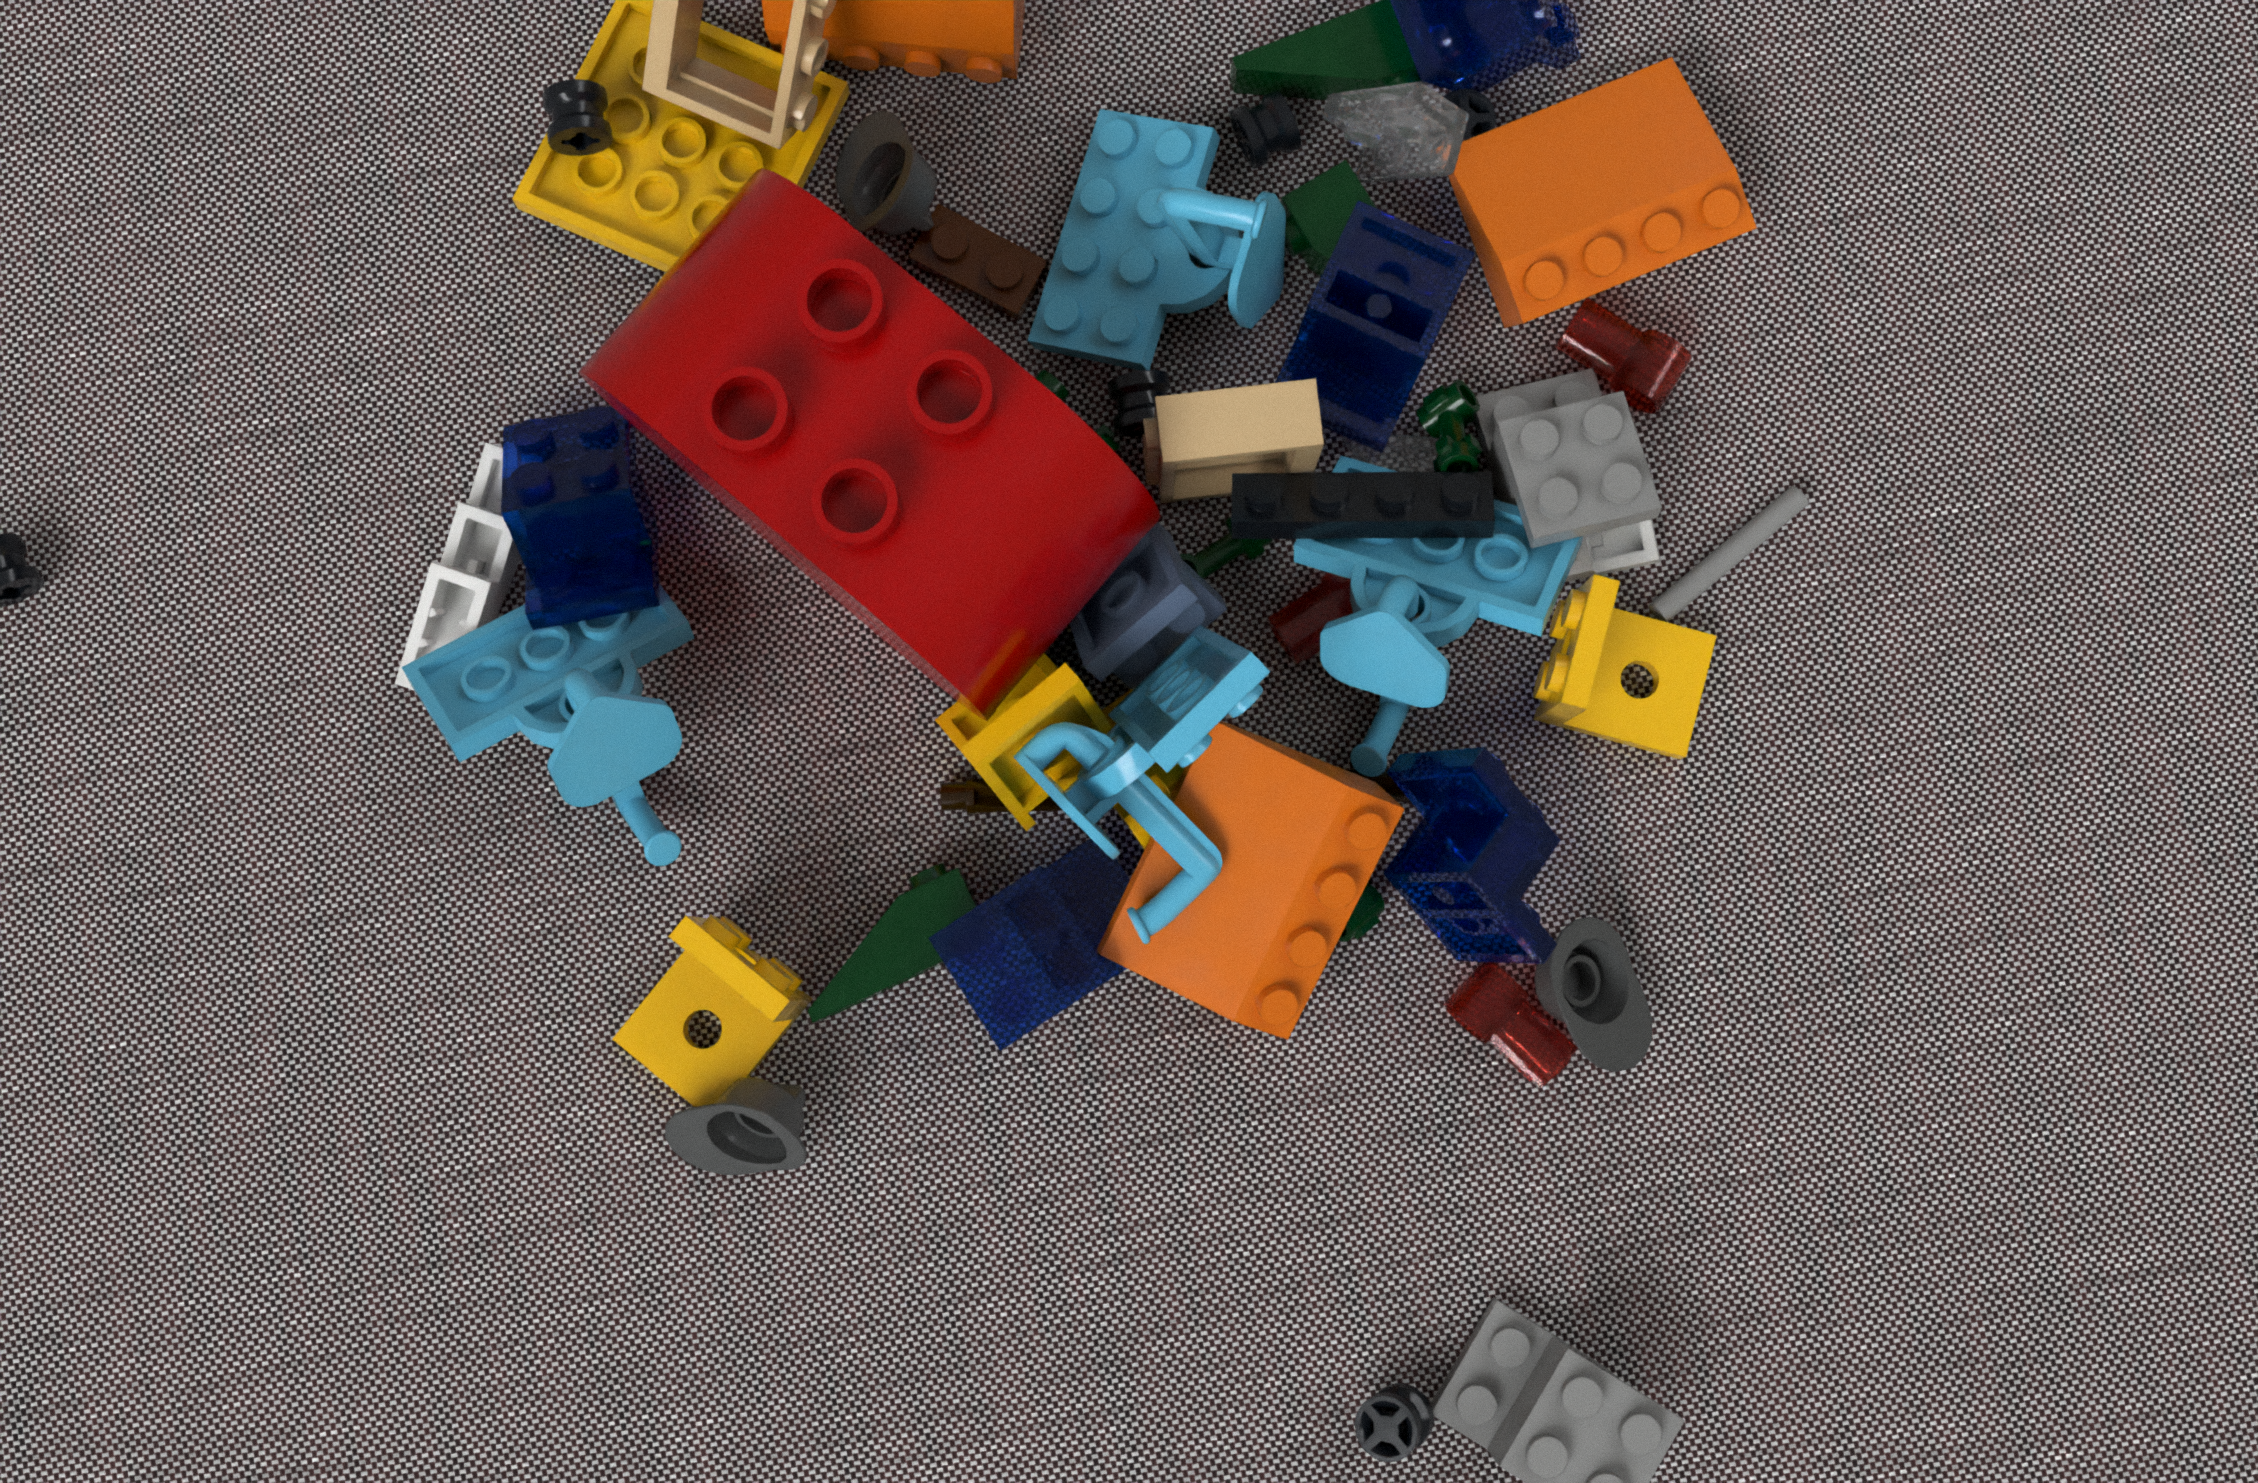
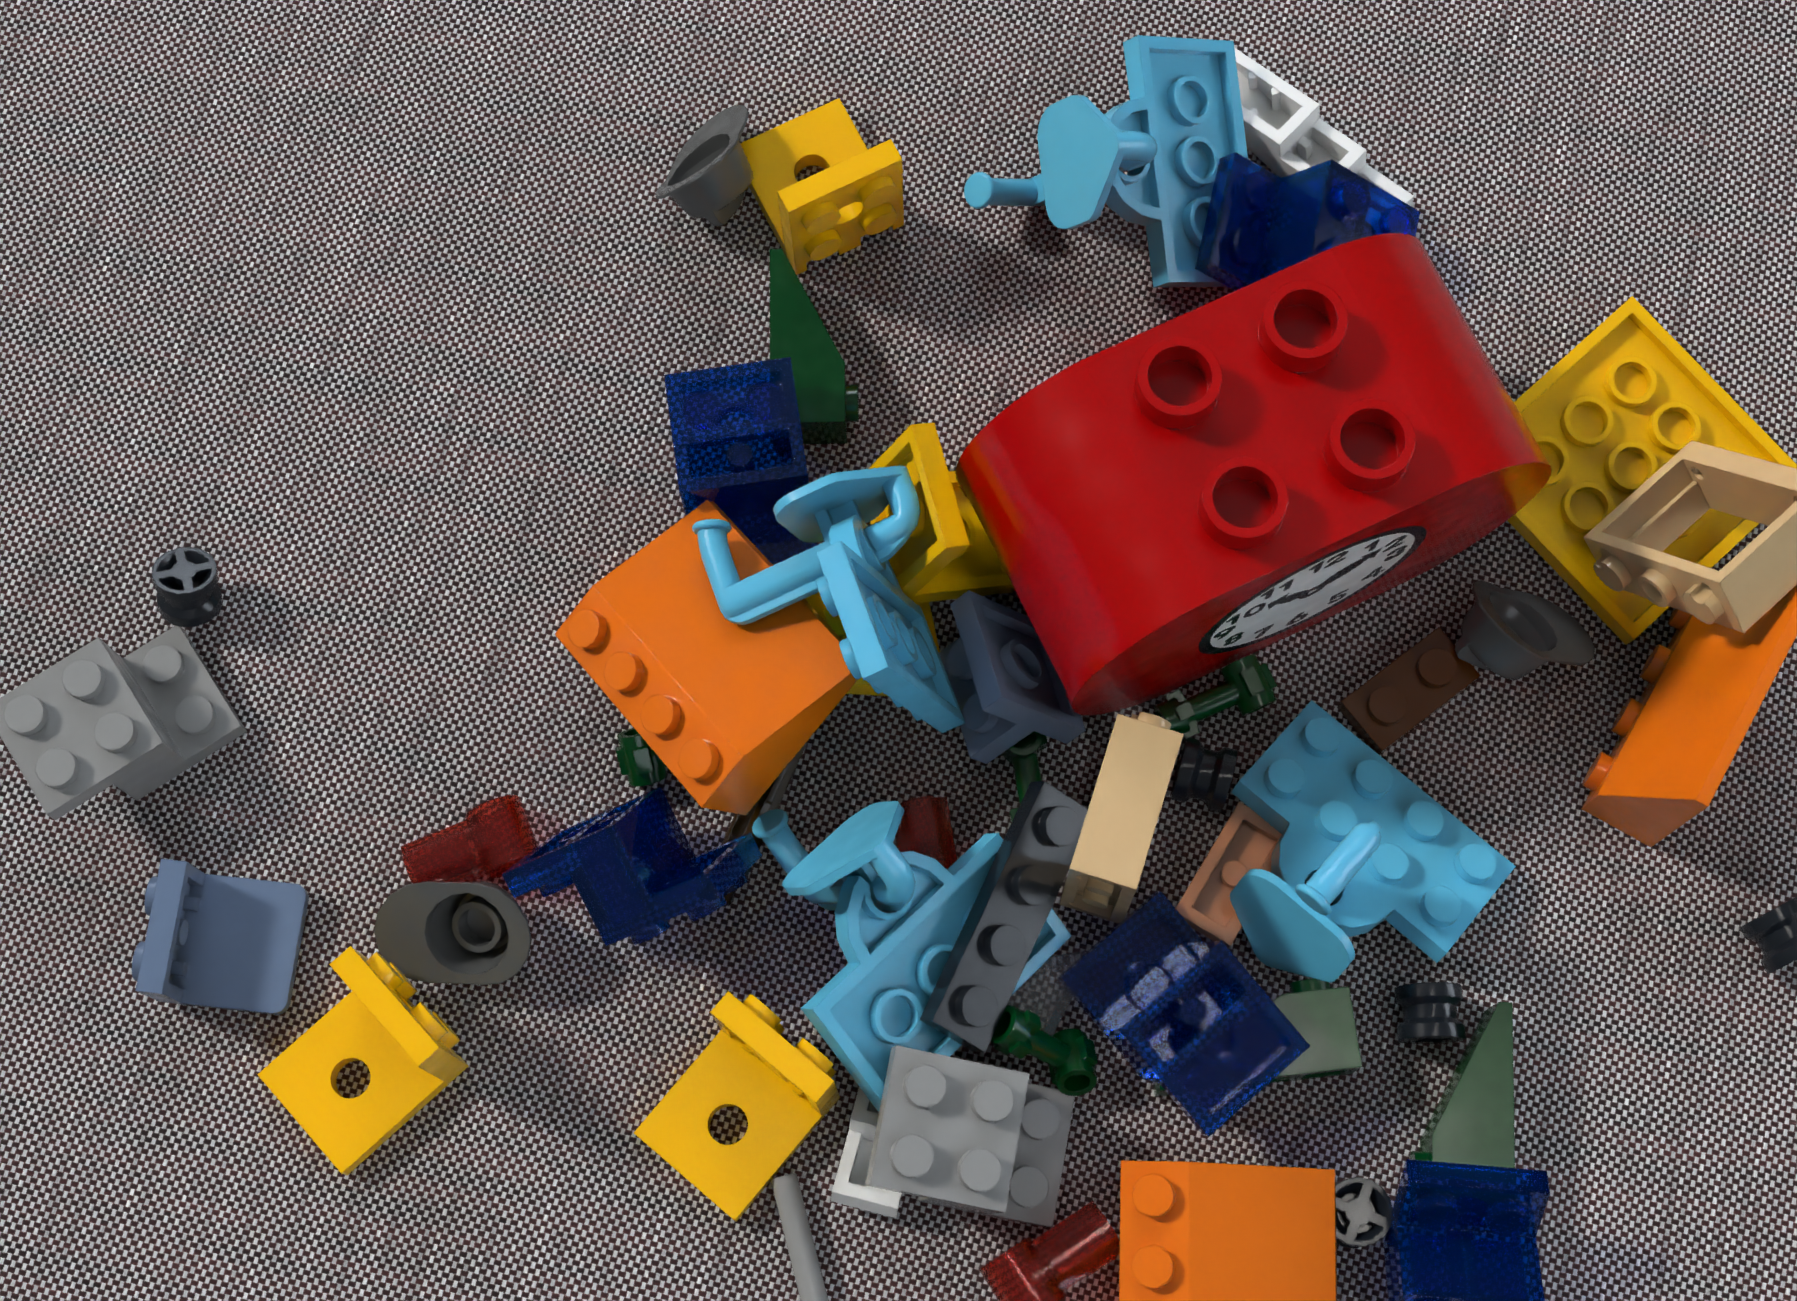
camera: 115 degrees right, 10 degrees down
(577, 117) = (1685, 374): black wheel -> none
(1217, 346) = (1241, 846): none -> nougat plate
(1401, 130) = (1362, 1136): clear bracket -> none
(1698, 1209) = (220, 940): none -> sand blue bracket
(1704, 1015) = (374, 1024): none -> yellow bracket

